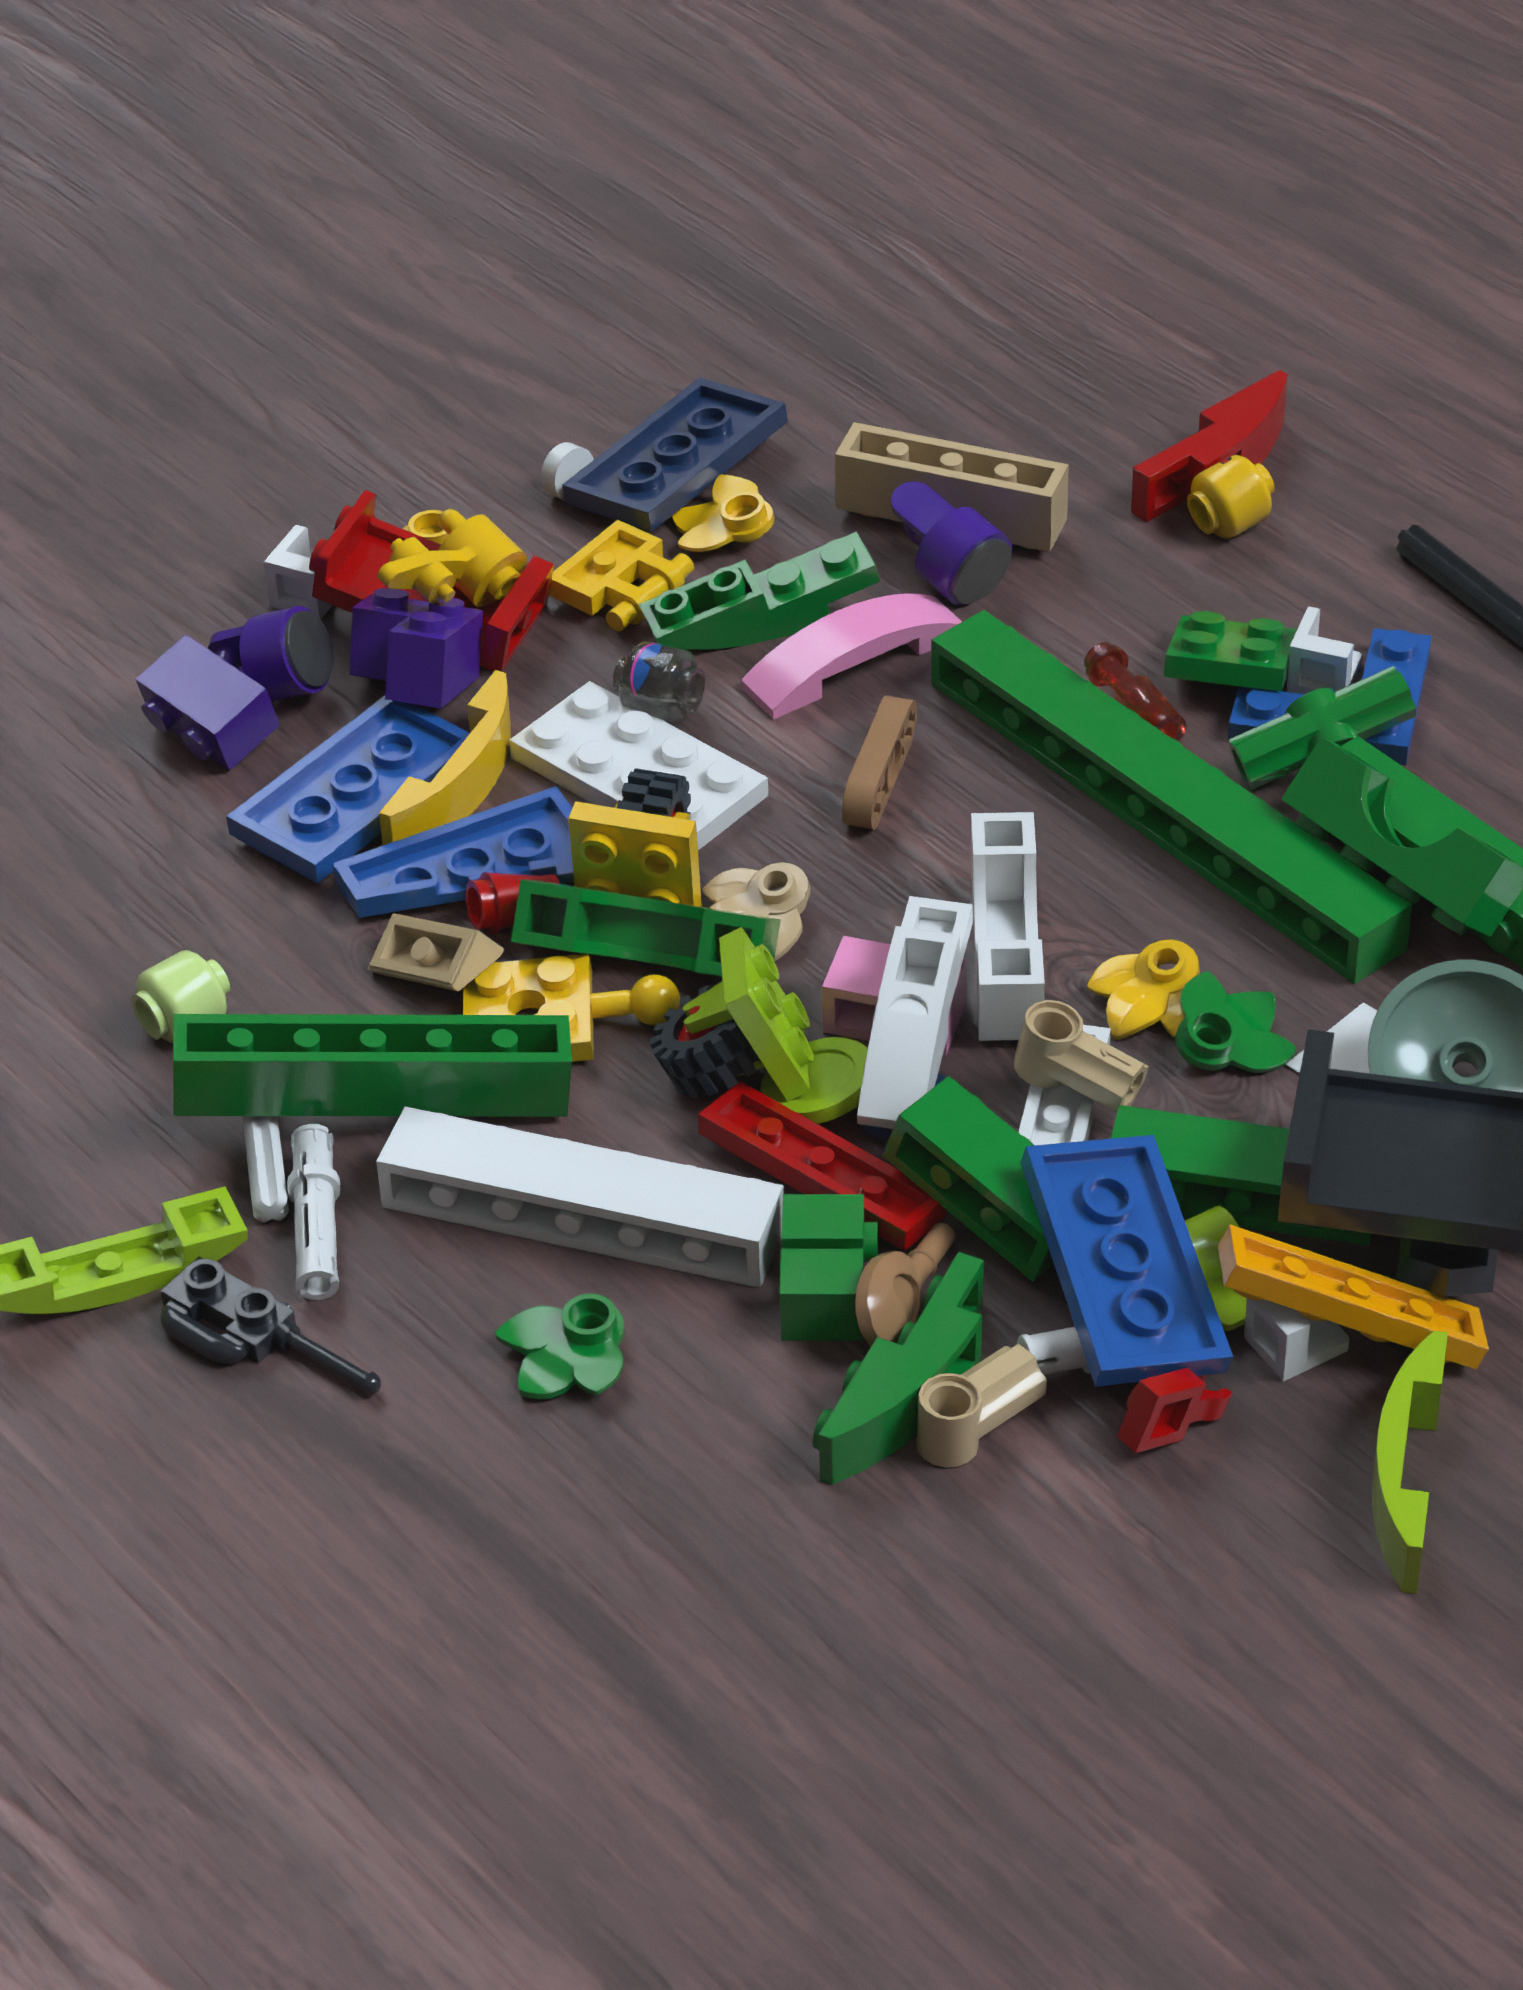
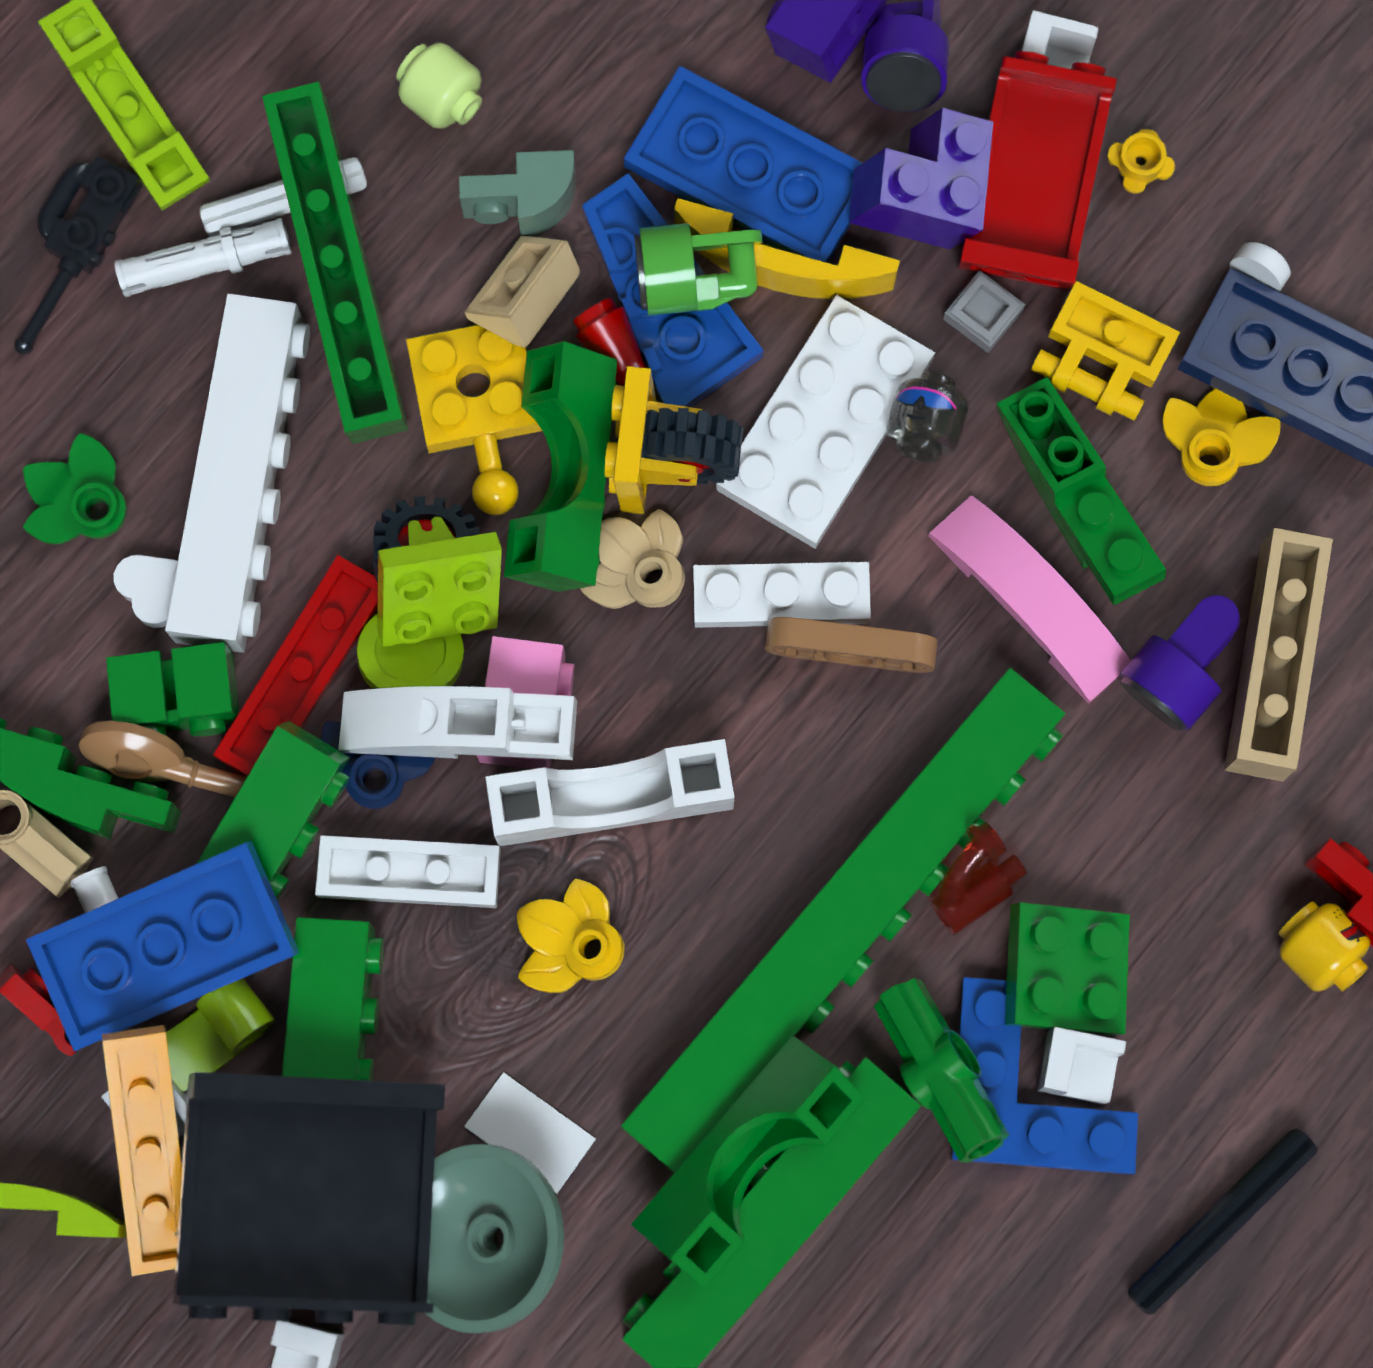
camera: 80 degrees right, 35 degrees up
(326, 943) = (536, 194): none -> sand green brick
(461, 803) = (668, 270): none -> bright green piece
(473, 558) = (1049, 208): yellow piece -> none
(553, 654) = (984, 311): none -> light grey tile
(694, 1290) = (148, 586): none -> white tile
(812, 811) = (756, 592): none -> white plate
(1059, 1052) = (414, 886): tan piece -> none
(1233, 1024) = (536, 1020): green plate -> none

